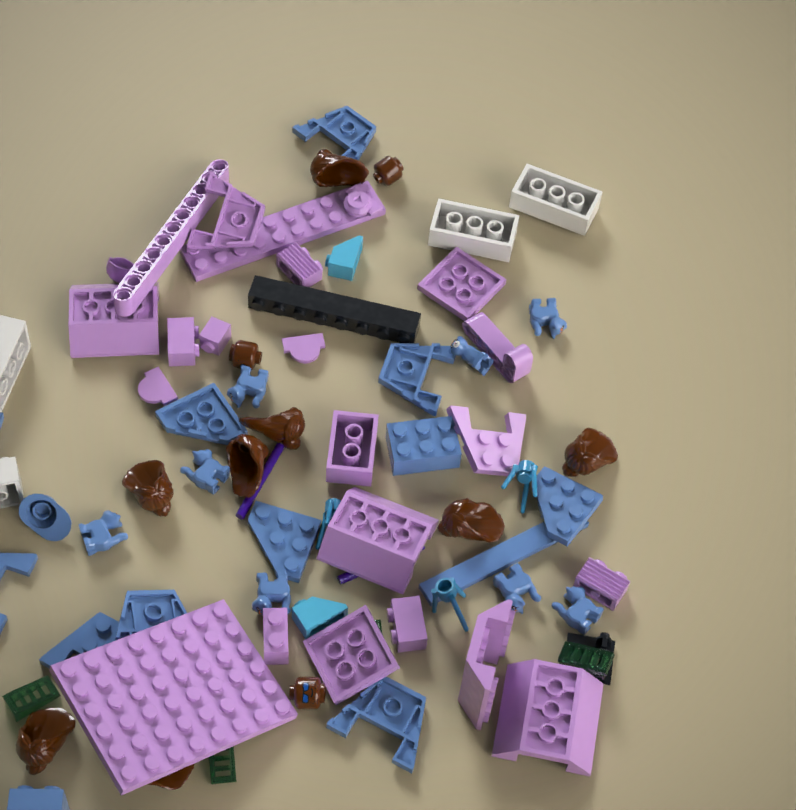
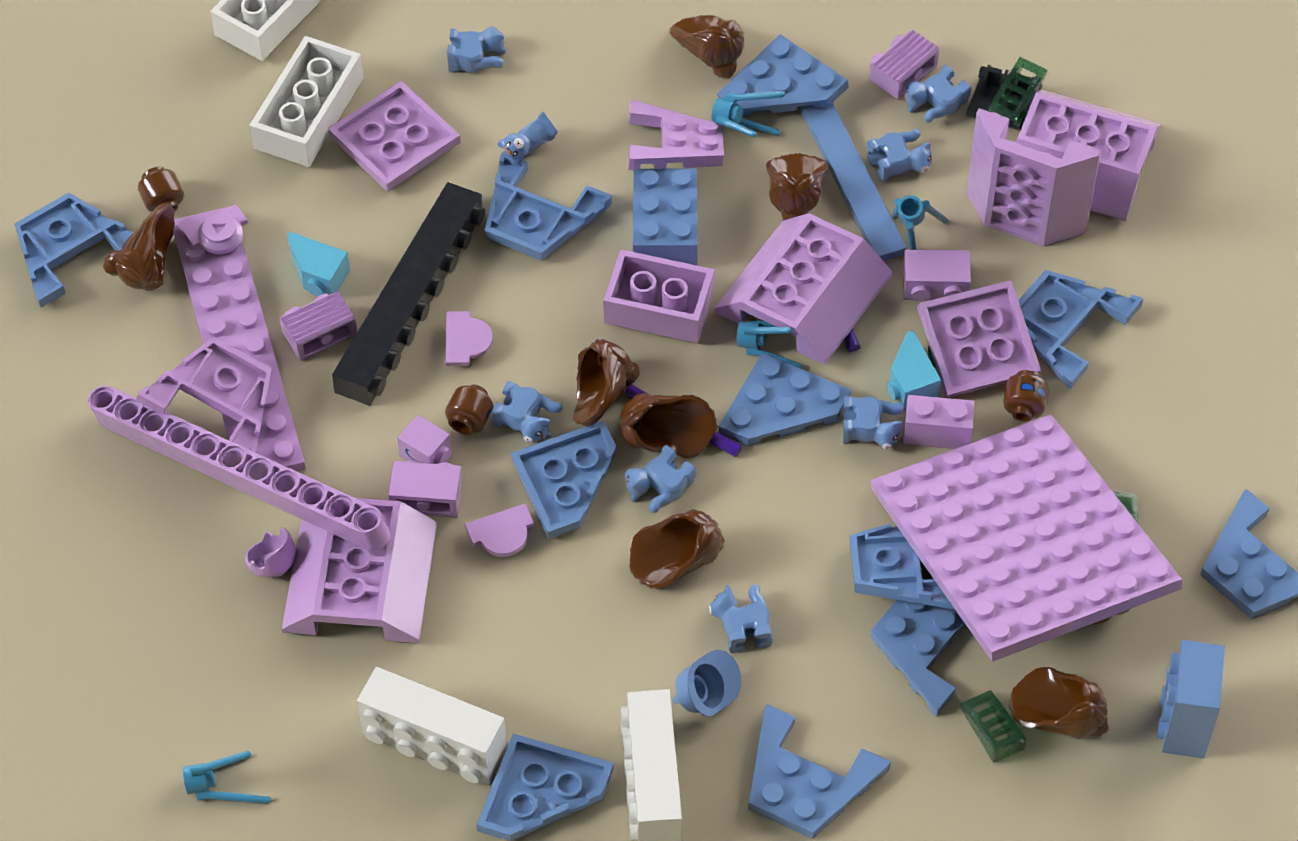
camera: 75 degrees left, 0 degrees up
(509, 361) = (511, 112): lavender beam -> none

